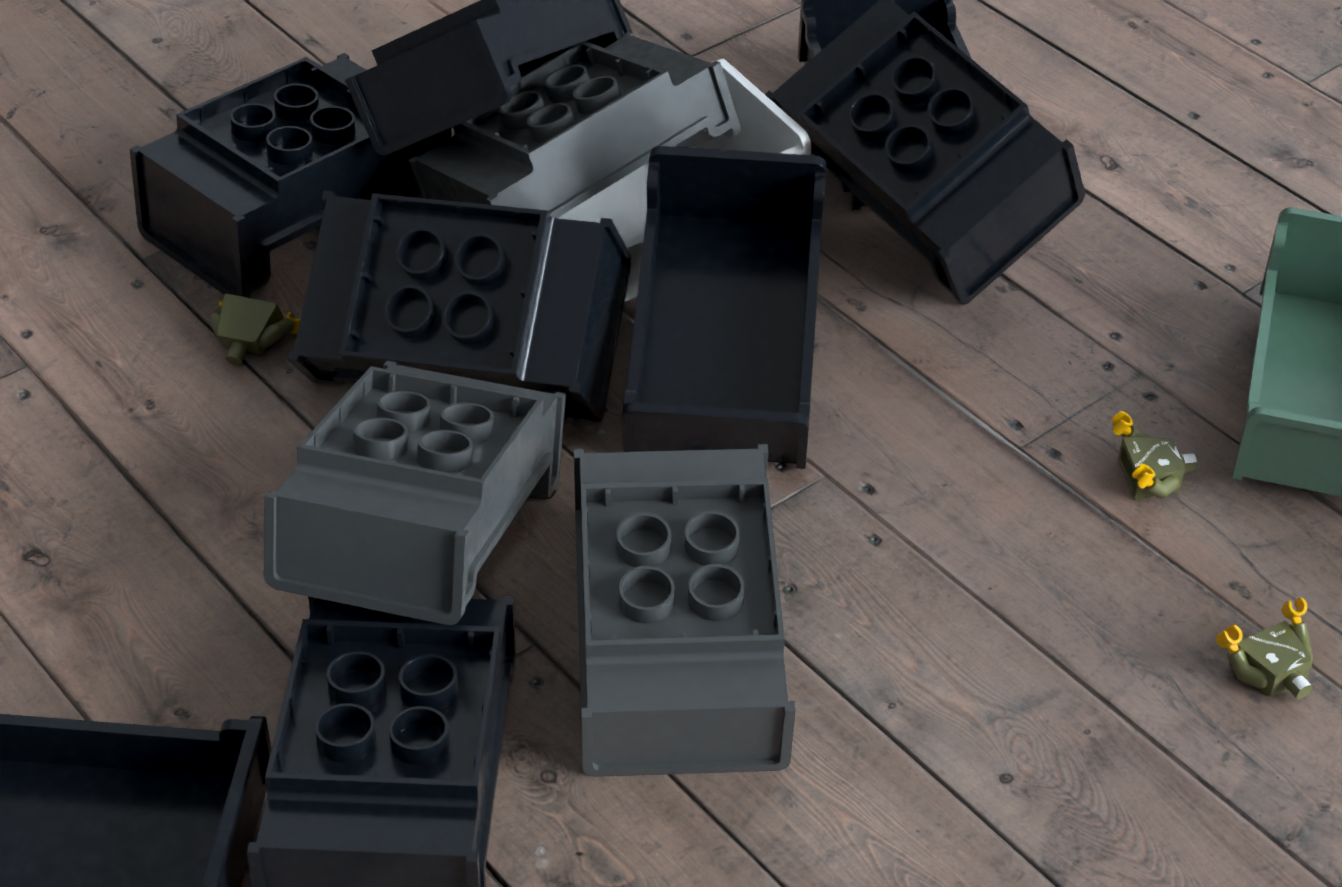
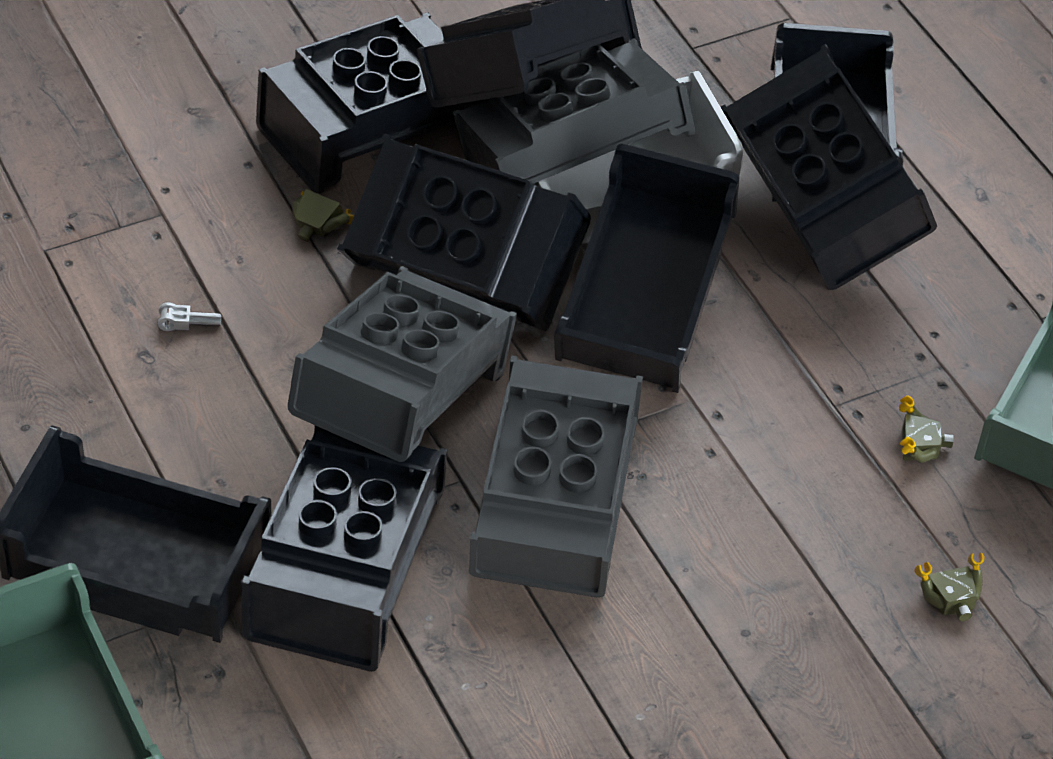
camera: 10 degrees right, 5 degrees up
(78, 493) = (180, 317): none -> white connector

